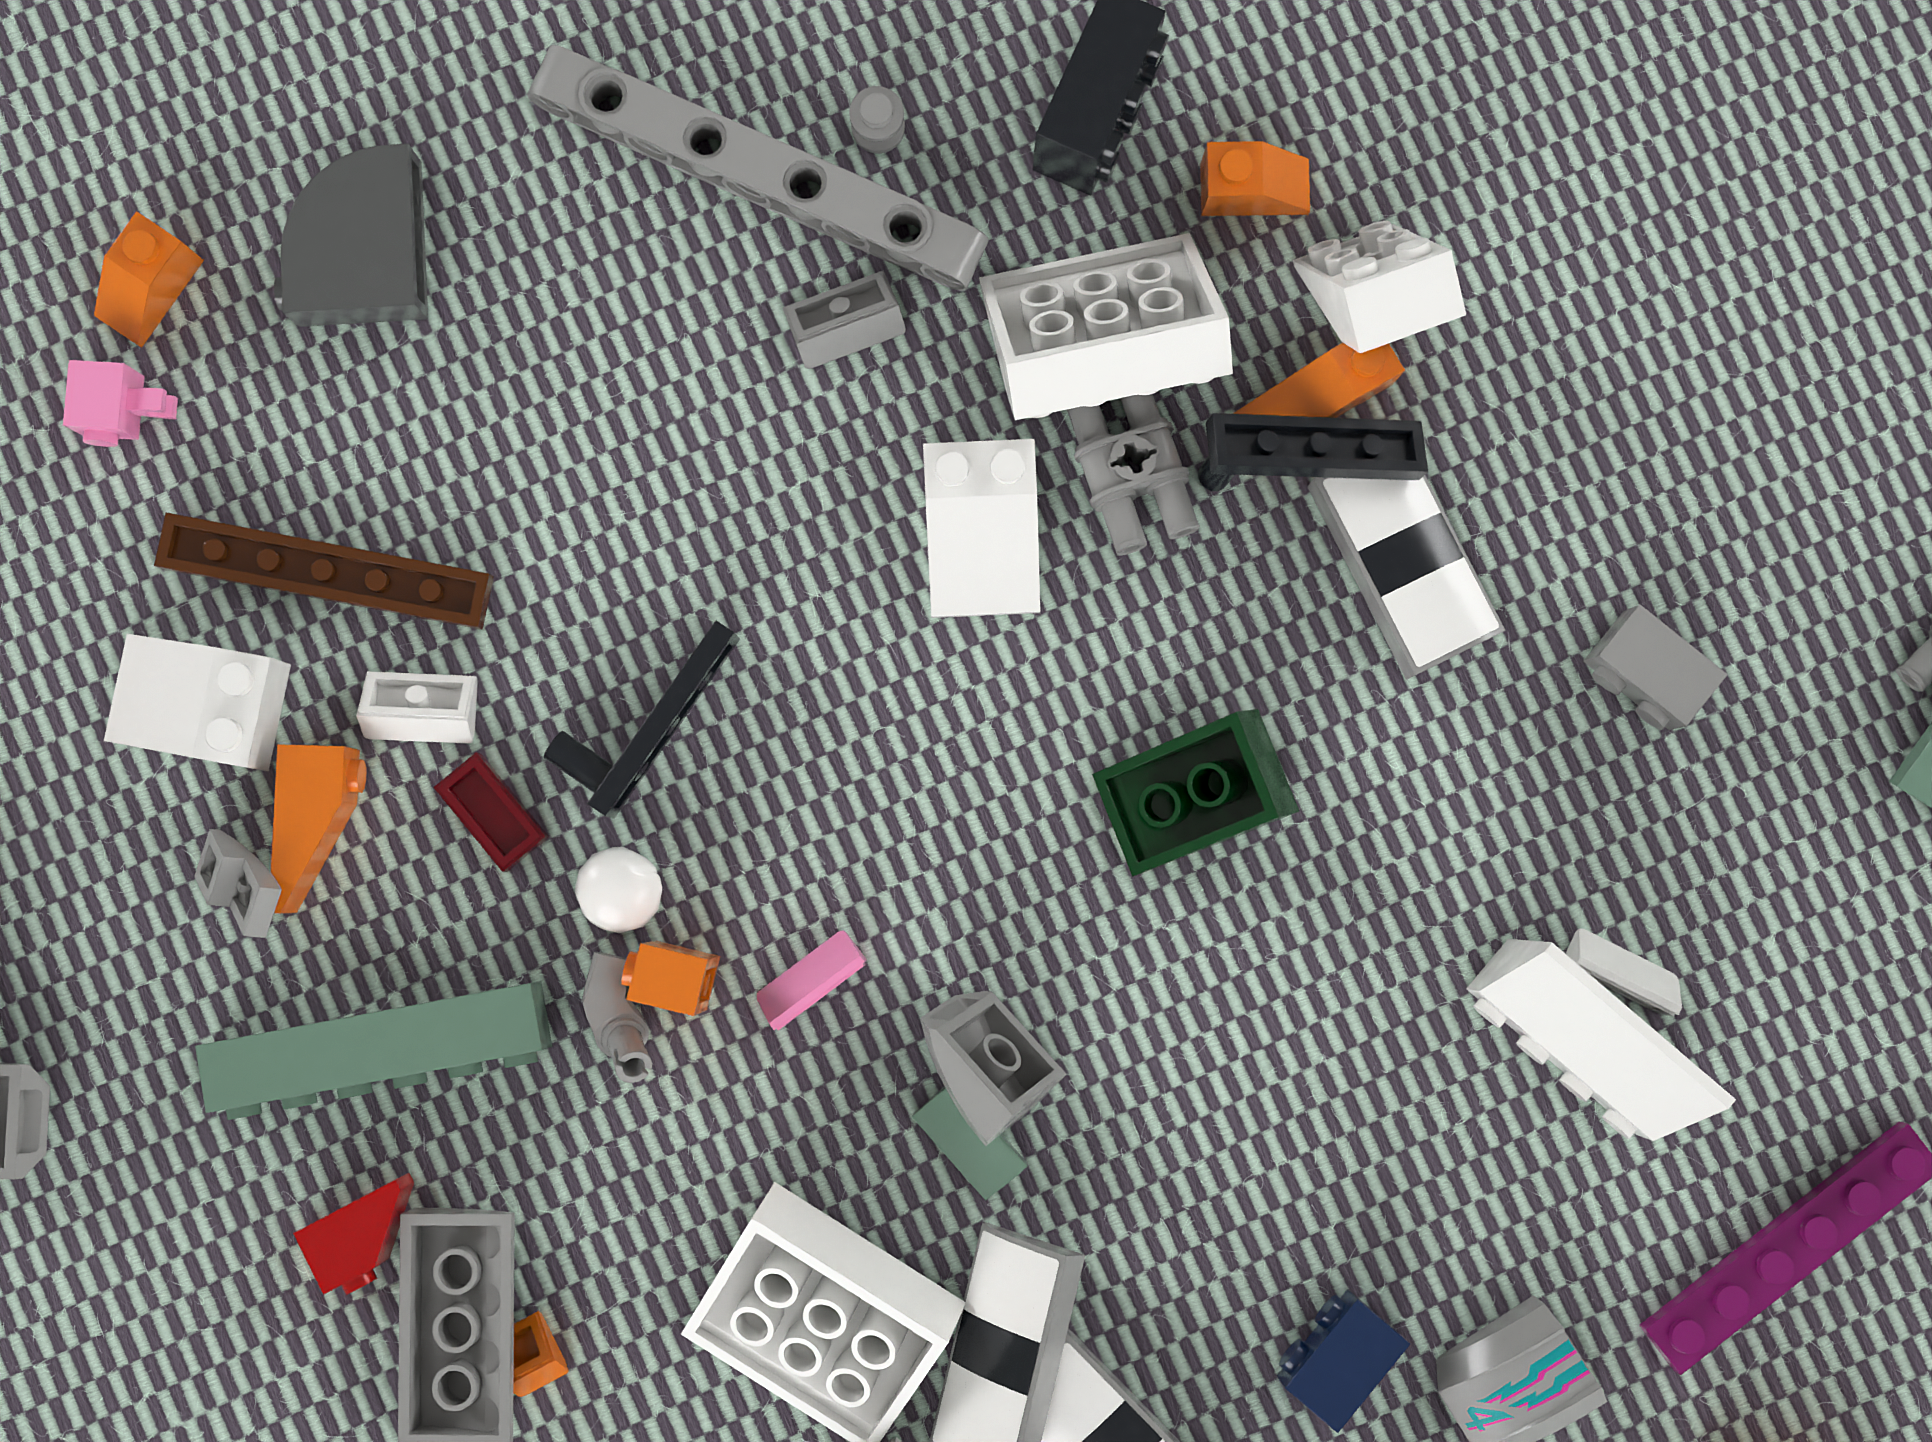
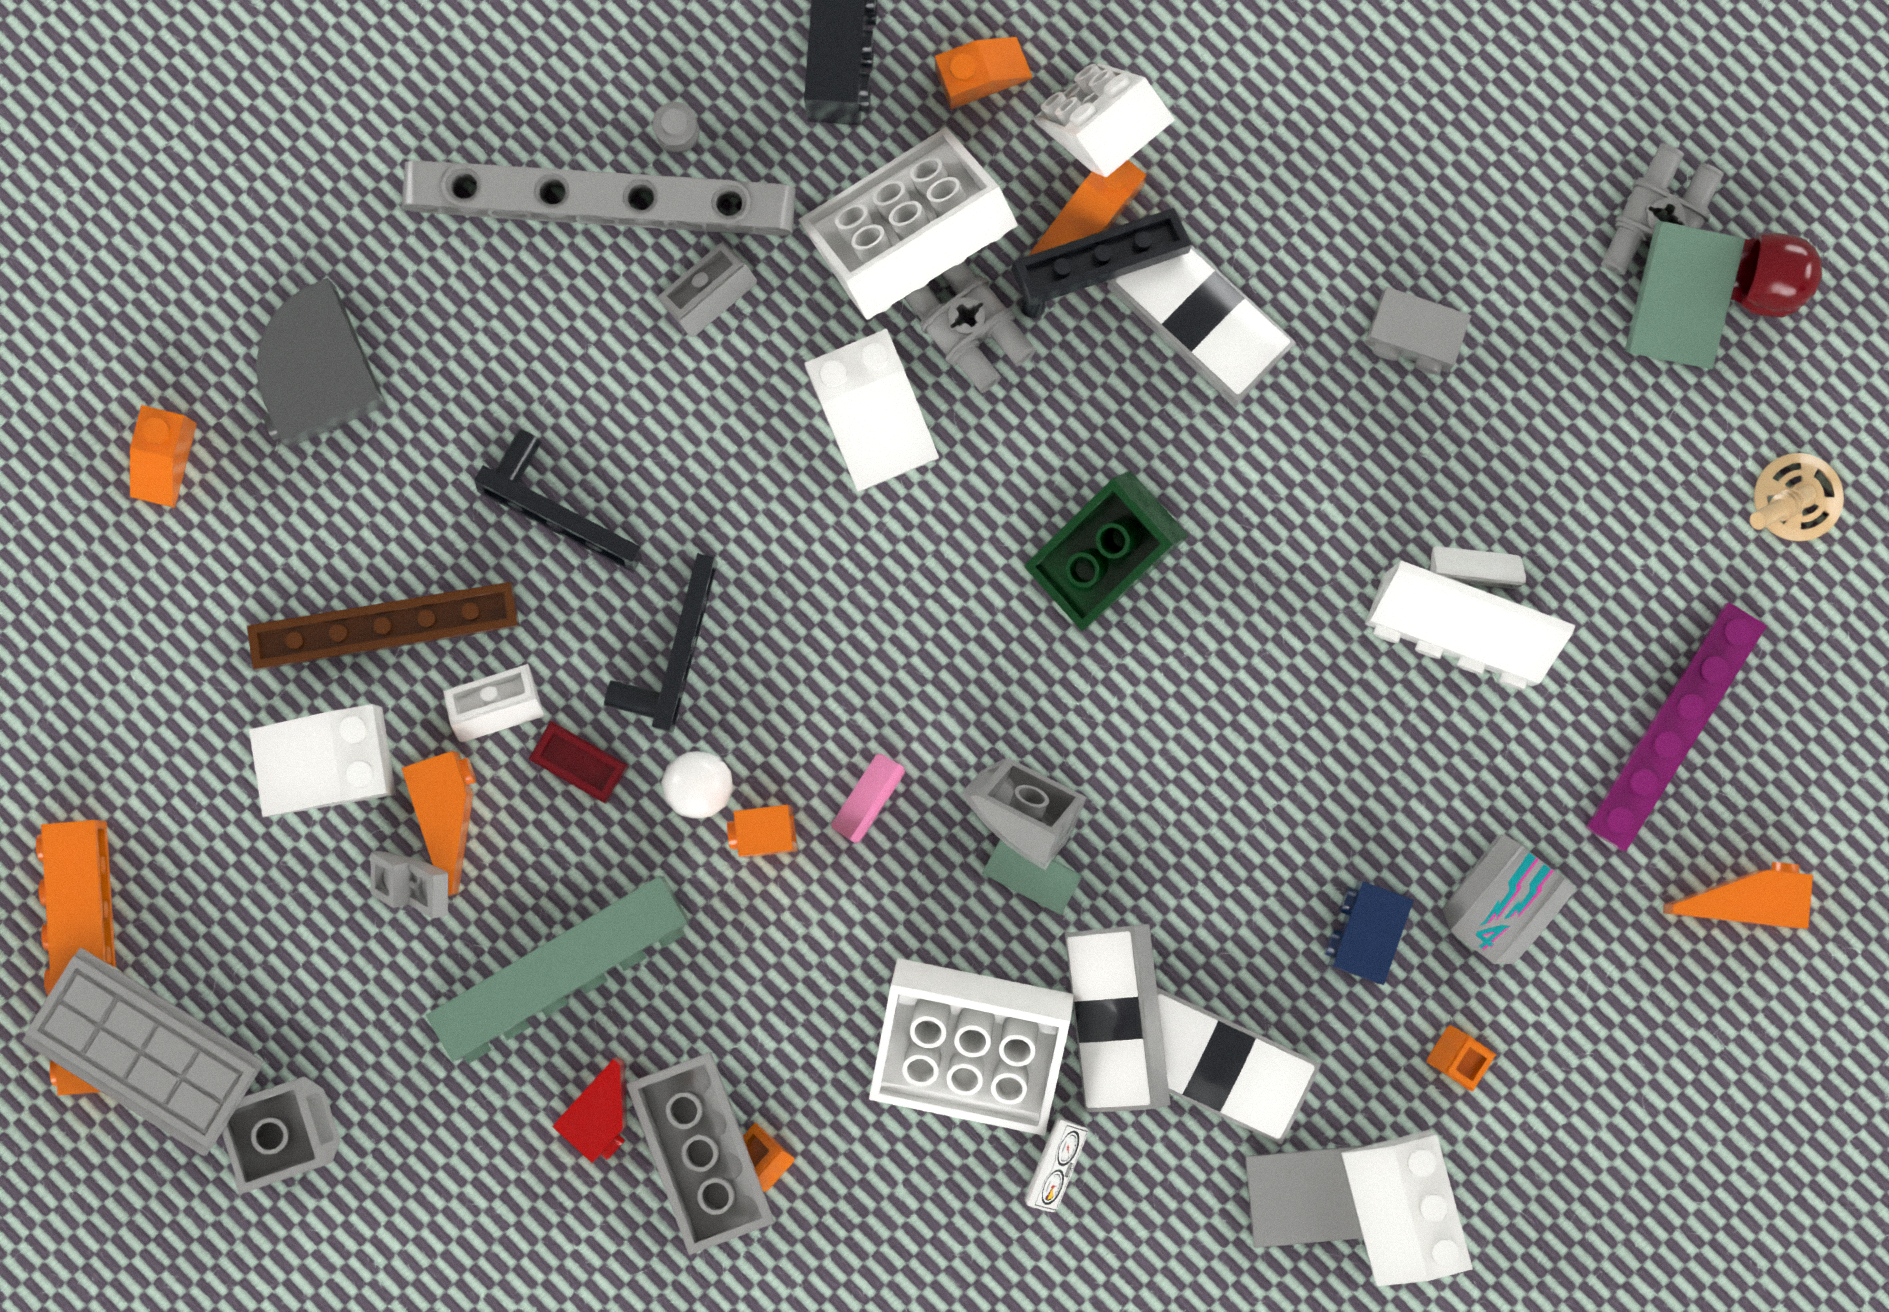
camera: 15 degrees left, 0 degrees up
(108, 400) = (169, 557): bright pink brick -> none
(523, 462) = (505, 489): none -> black piece
(614, 1020) = (729, 880): light grey arm -> none

